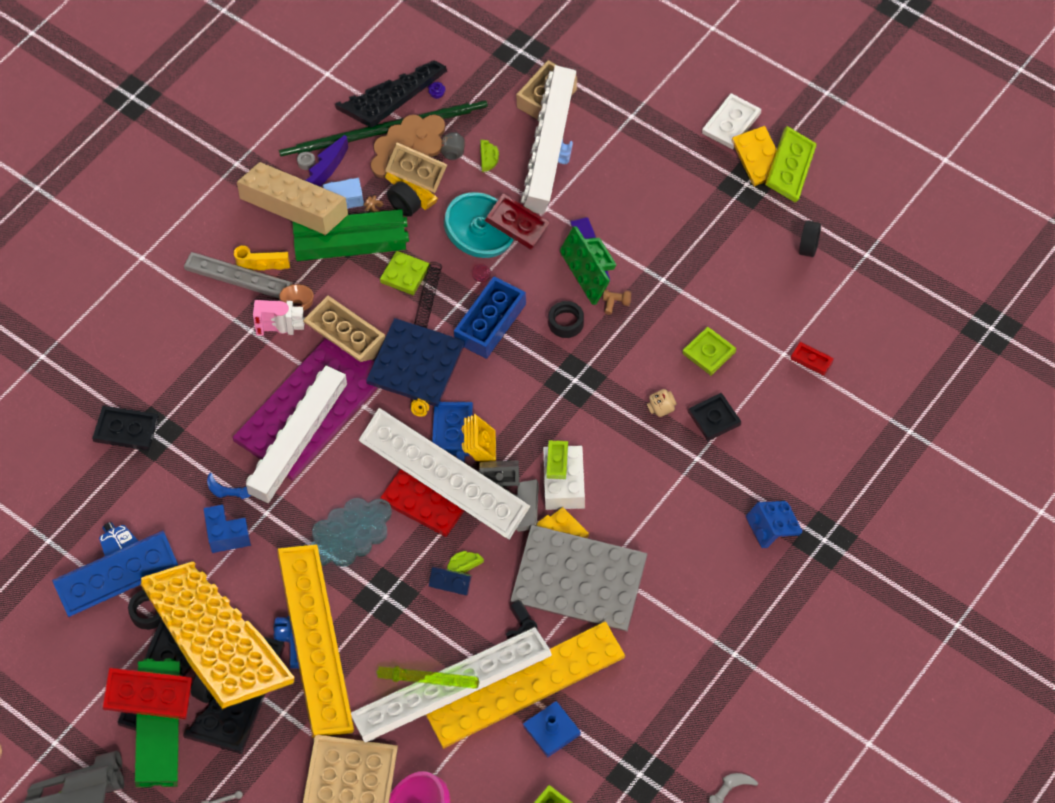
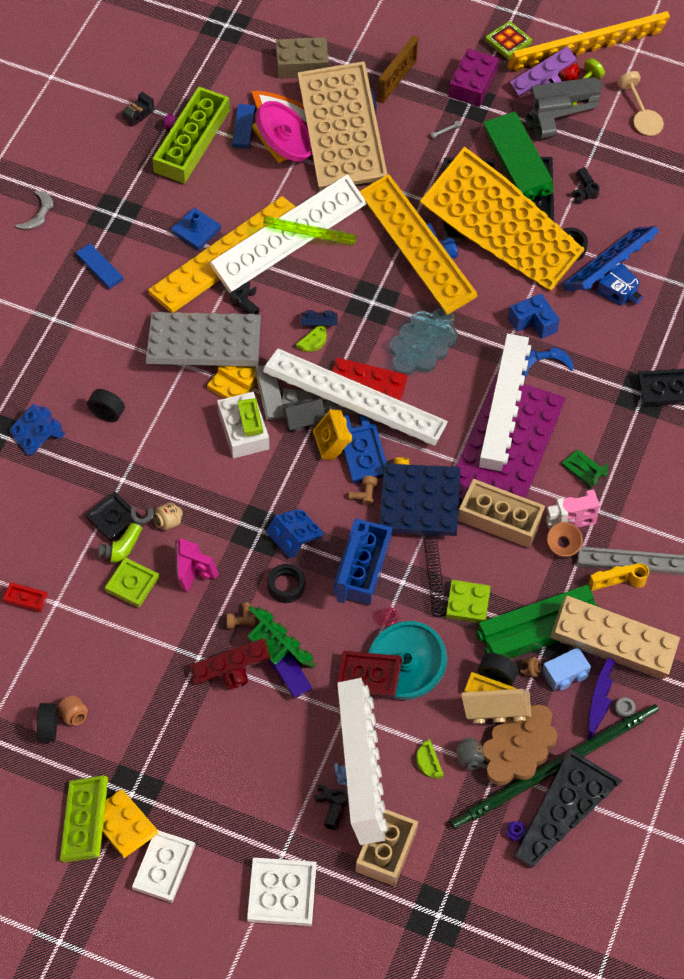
camera: 160 degrees right, 0 degrees up
(92, 674) = (590, 189): none -> black bar
(147, 693) = (533, 157): red plate -> none
(249, 376) = (581, 462): none -> green piece
(457, 396) = (369, 483): none -> medium nougat piece
(504, 290) = (351, 560): none -> blue tile
(542, 364) = (292, 530): none -> blue bracket
(577, 137) = (338, 800): none -> black bar
(637, 250) = (231, 664): none -> dark red plate
(640, 85) = (282, 892): none -> white plate
(648, 345) = (190, 563): none -> dark pink piece
(671, 704) = (99, 266): none -> blue tile
(699, 523) = (105, 405): none -> black tyre
(711, 382) = (124, 546): none -> lime piece
(785, 250) = (72, 710): none -> nougat head

